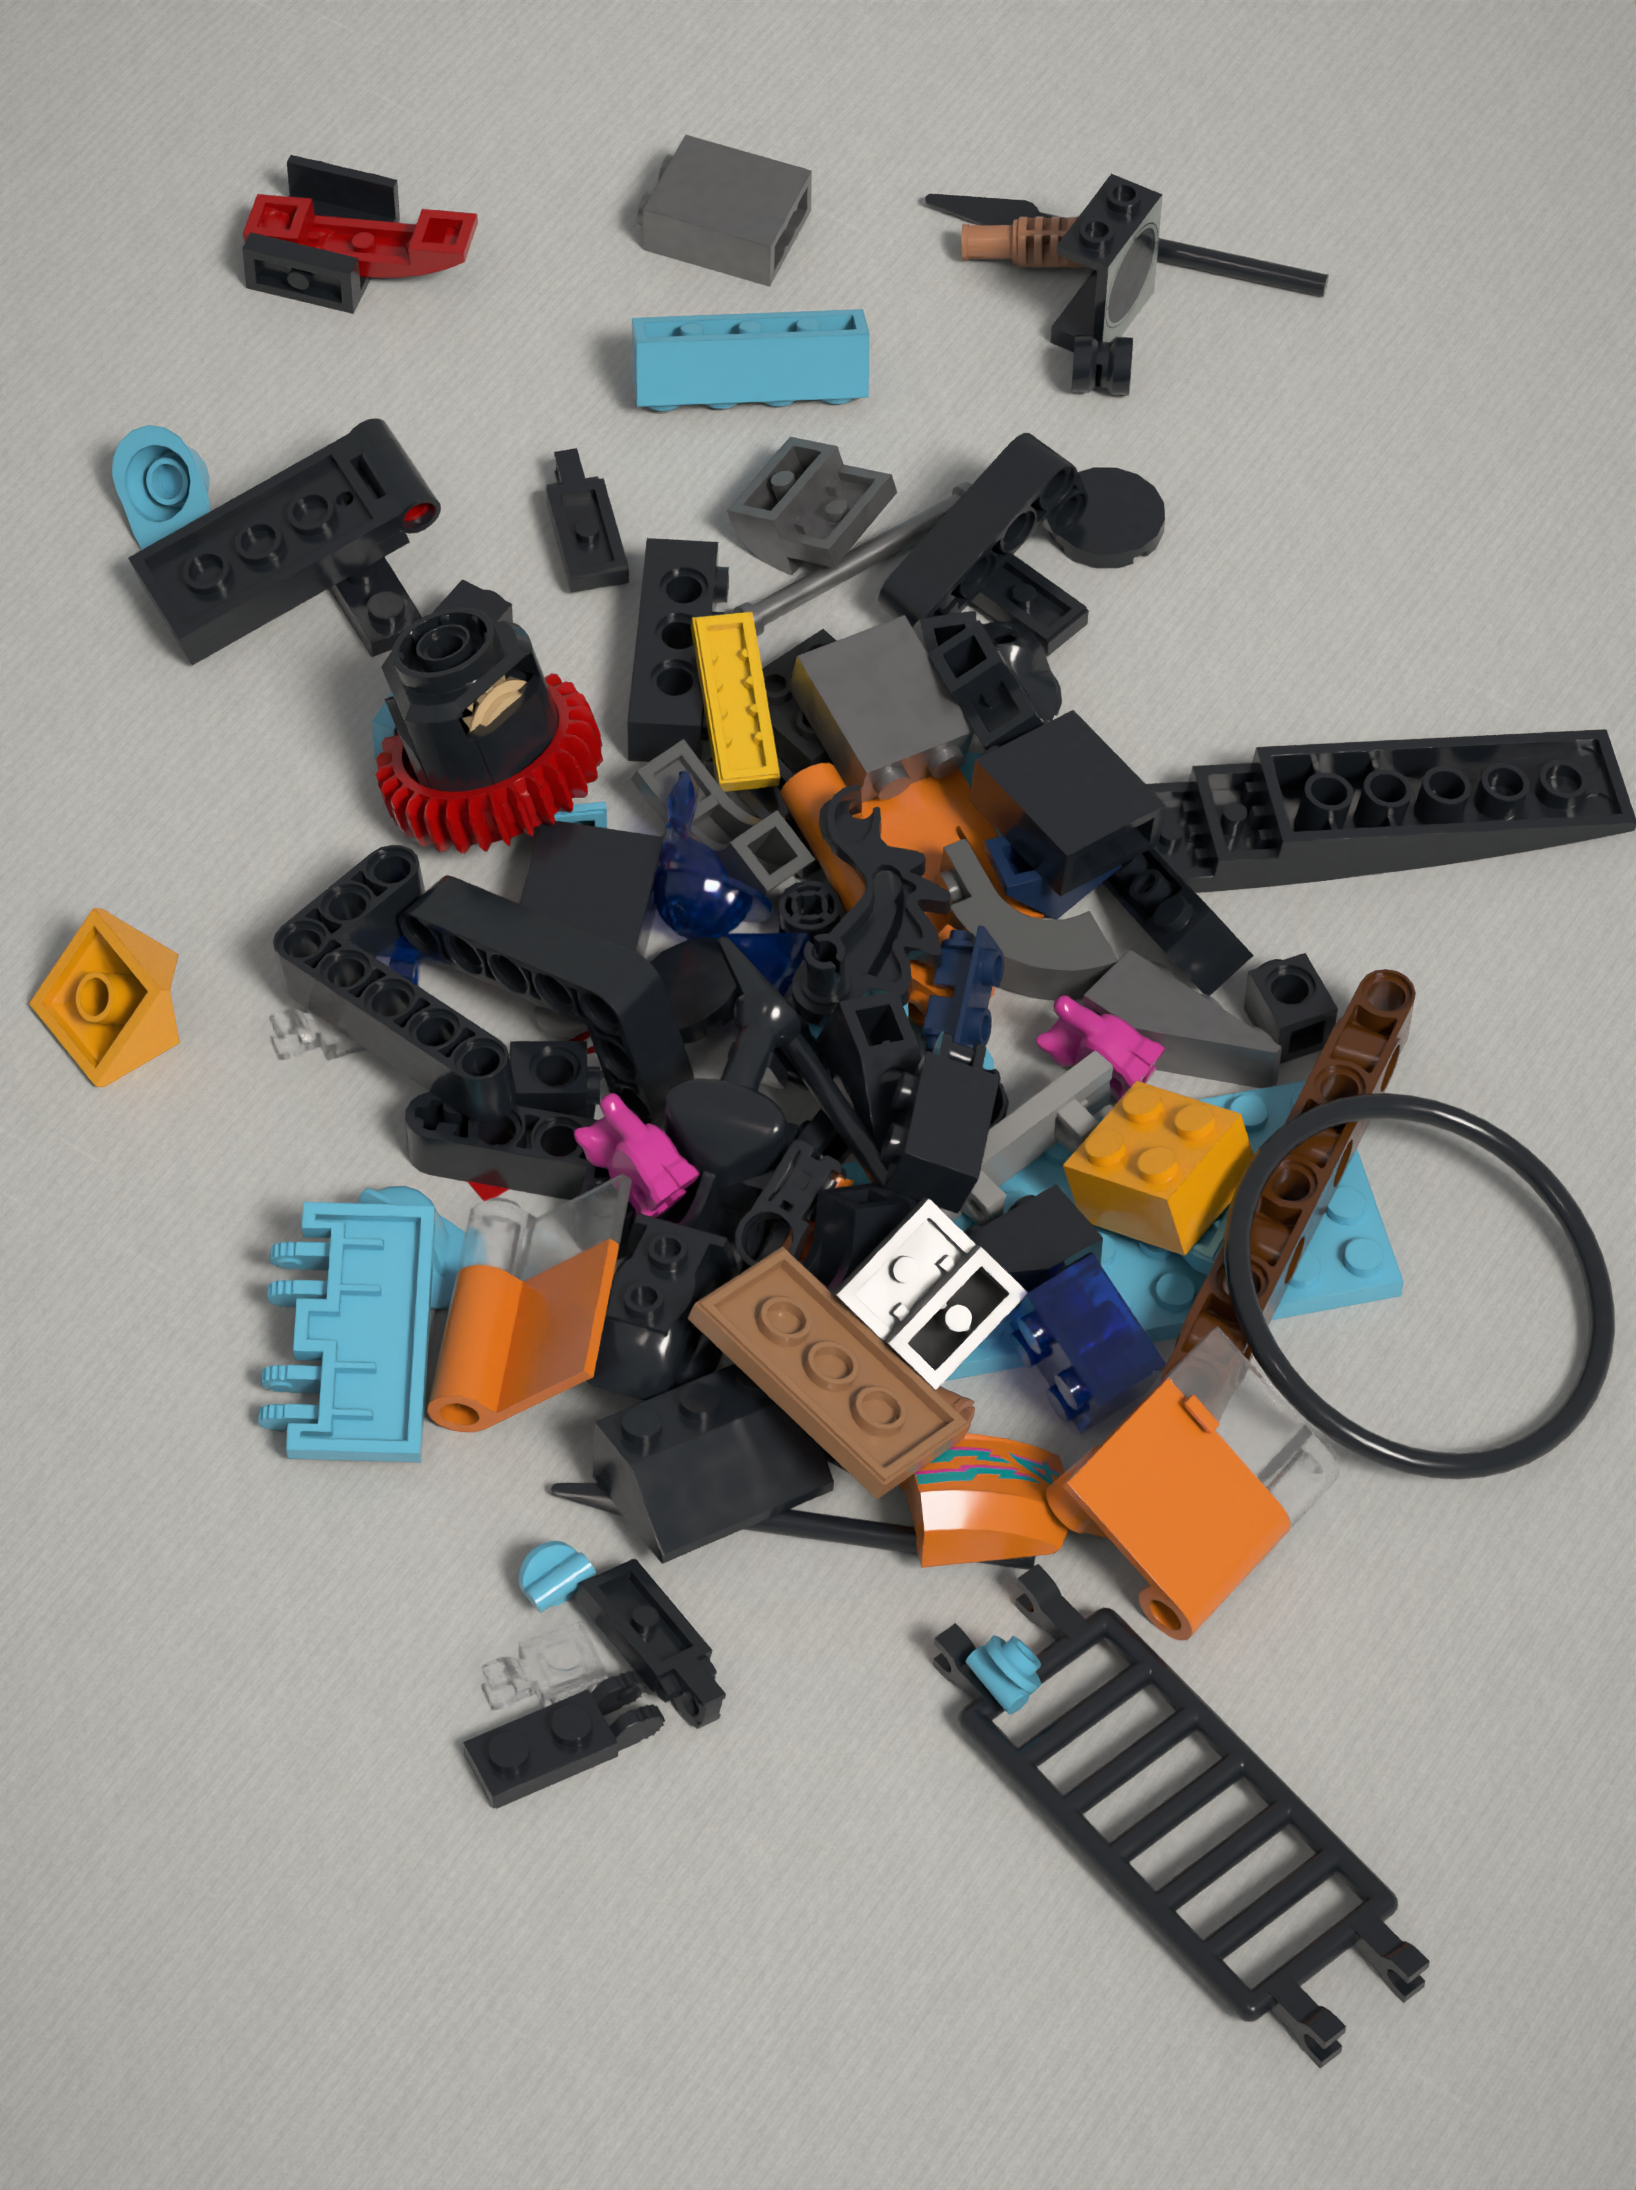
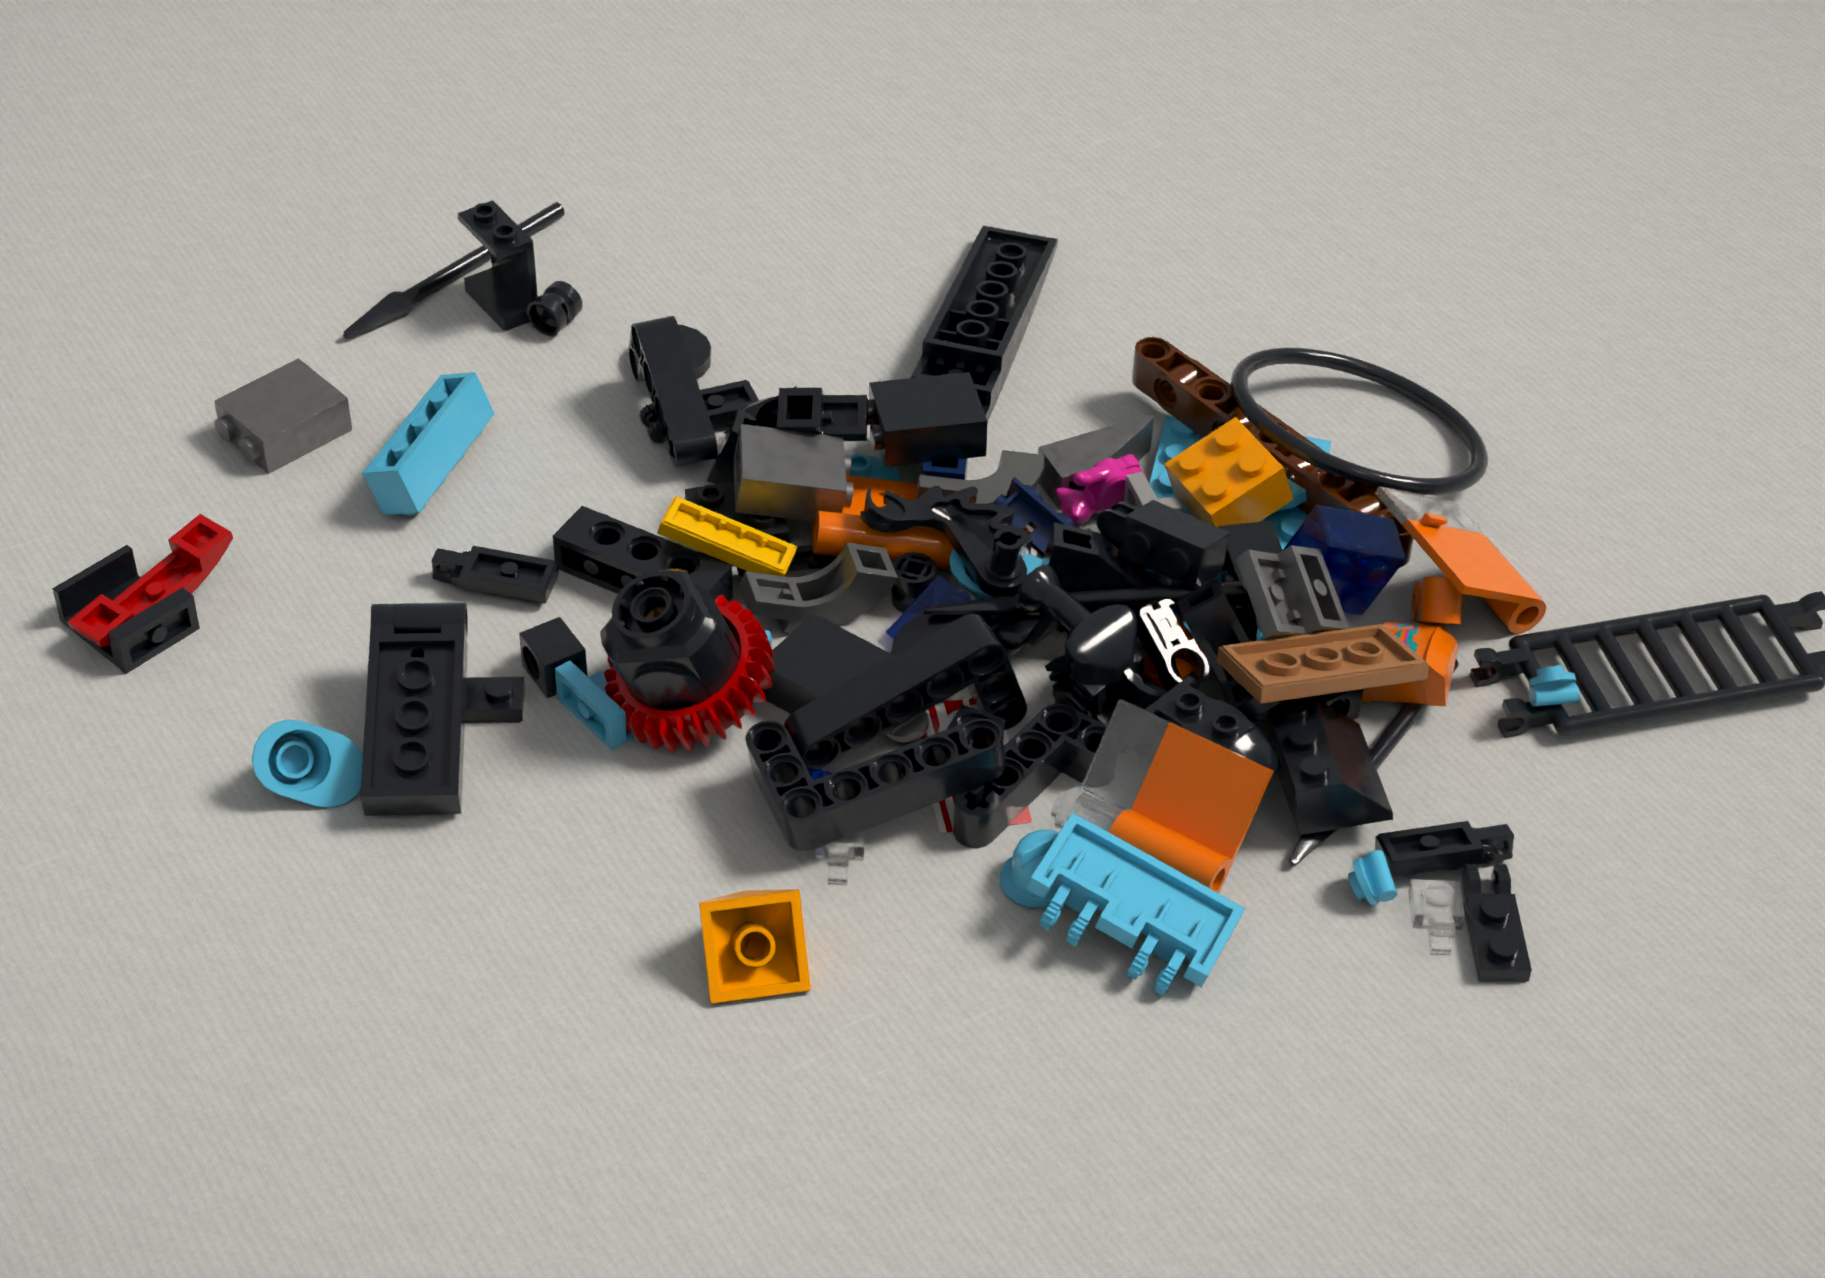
camera: 65 degrees left, 10 degrees down
(640, 1153) = (1099, 696): dark pink animal -> none
(691, 881) = (856, 607): clear blue piece -> none
(808, 506) = (576, 461): flat silver brick -> none
(850, 565) = (613, 405): flat silver bar -> none
(1026, 242) = (431, 298): nougat hinge -> none
(1179, 922) = (1028, 423): black slope -> none
(1291, 1005) = (1106, 404): black brick -> none

